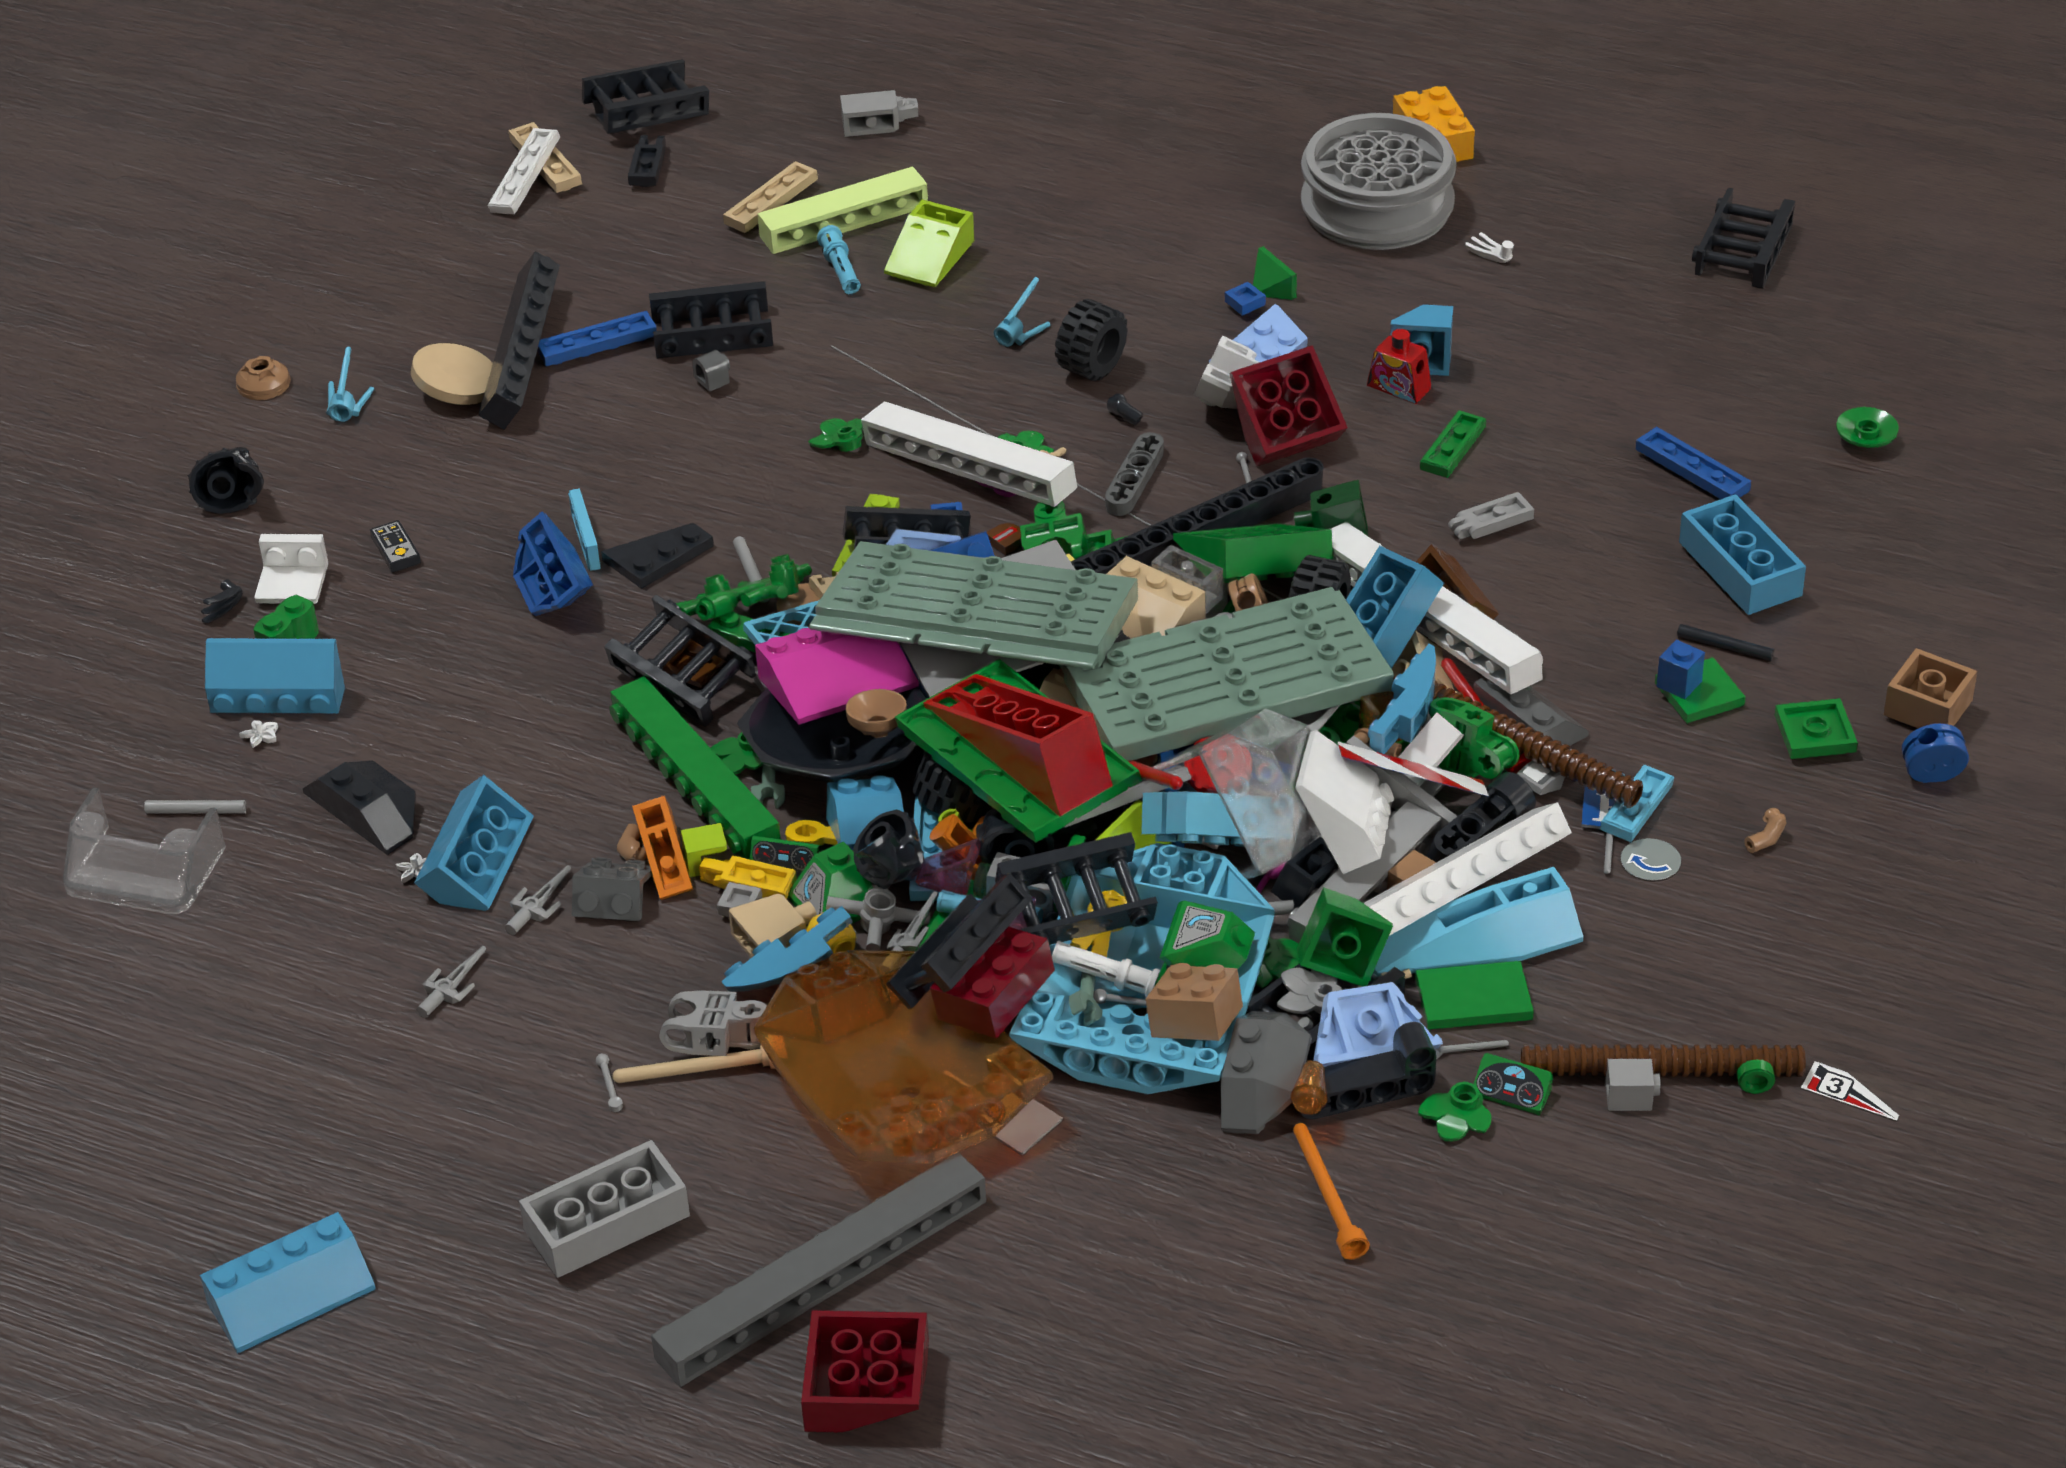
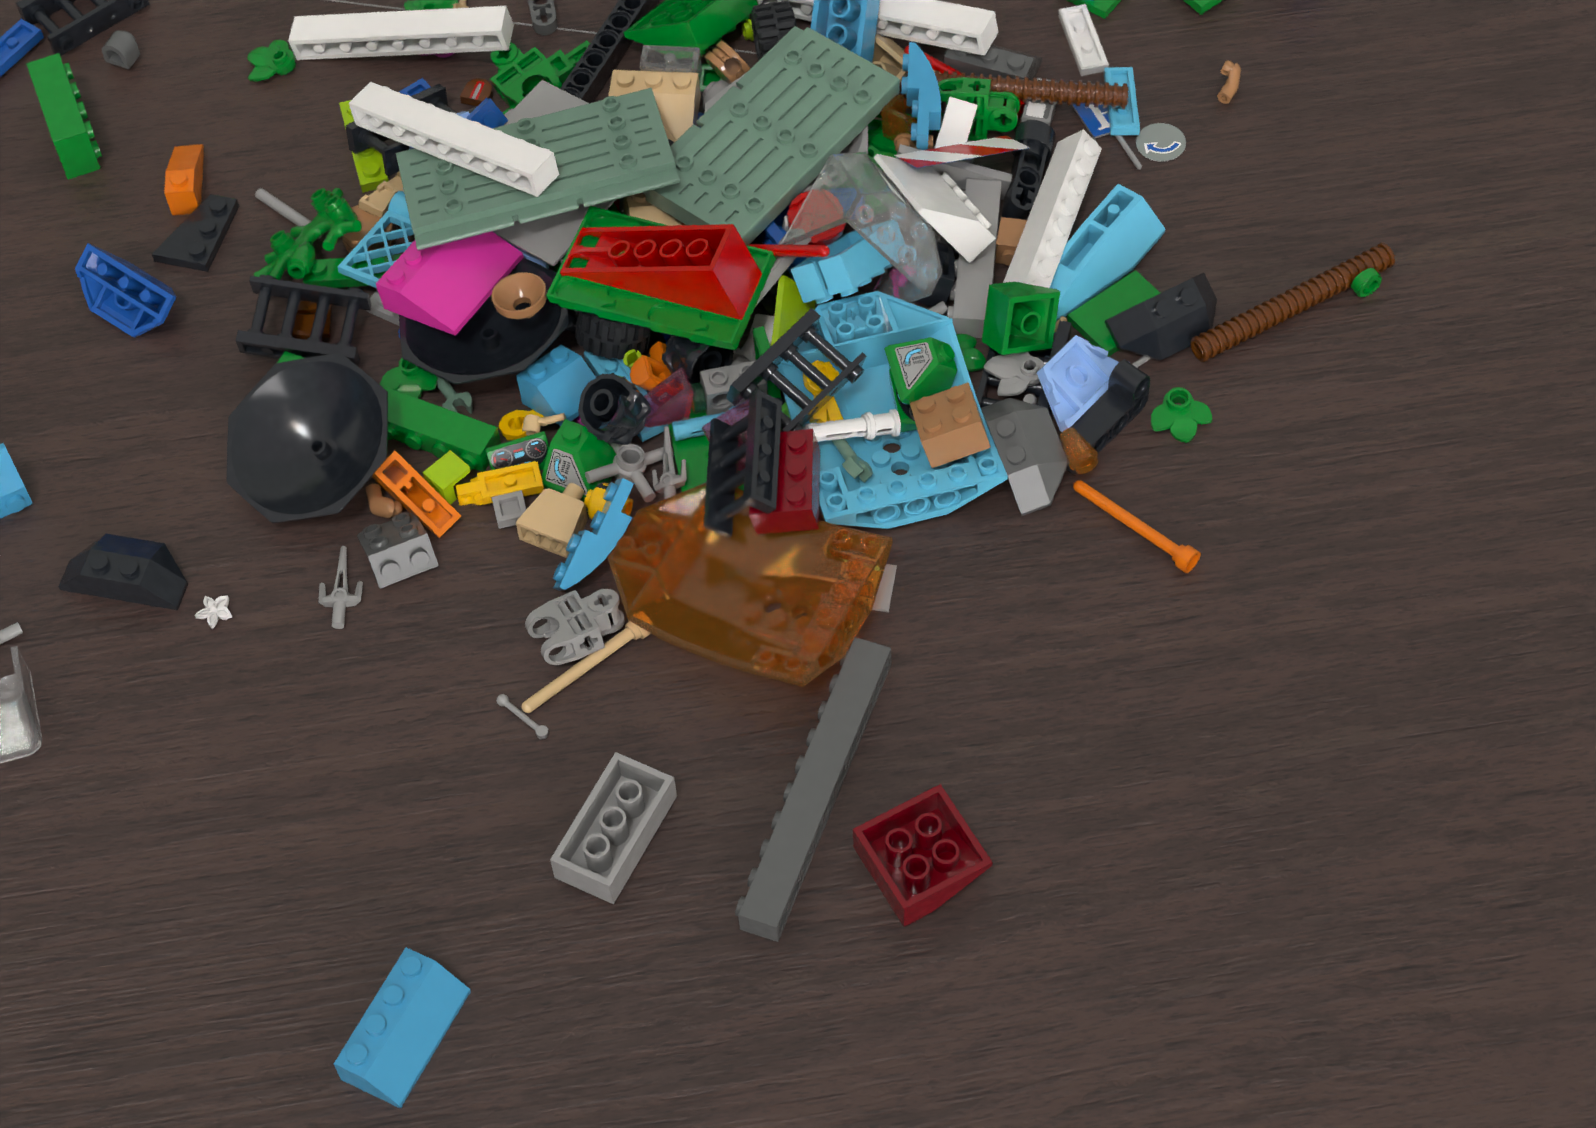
camera: 30 degrees left, 15 degrees up
(445, 988) = (324, 704): light grey piece -> none
(474, 847) = (253, 569): dark azure slope -> none
(584, 529) = (123, 241): medium azure tile -> none
(598, 753) = (307, 438): none -> black piece
(613, 402) = (65, 115): none -> green brick
(679, 500) = (184, 179): none -> orange slope
(815, 834) = (533, 423): none -> tan hand
(913, 545) = (454, 139): none -> white brick
(1101, 997) = (905, 437): light grey hinge -> none
(1505, 1014) = (1166, 320): none -> black wedge
(1513, 1083) = (1203, 372): slope -> none
(1631, 1084) = (1286, 332): light grey brick -> none
(1645, 731) = (1083, 39): none -> white tile
(1844, 1088) = (1423, 261): sticker -> none

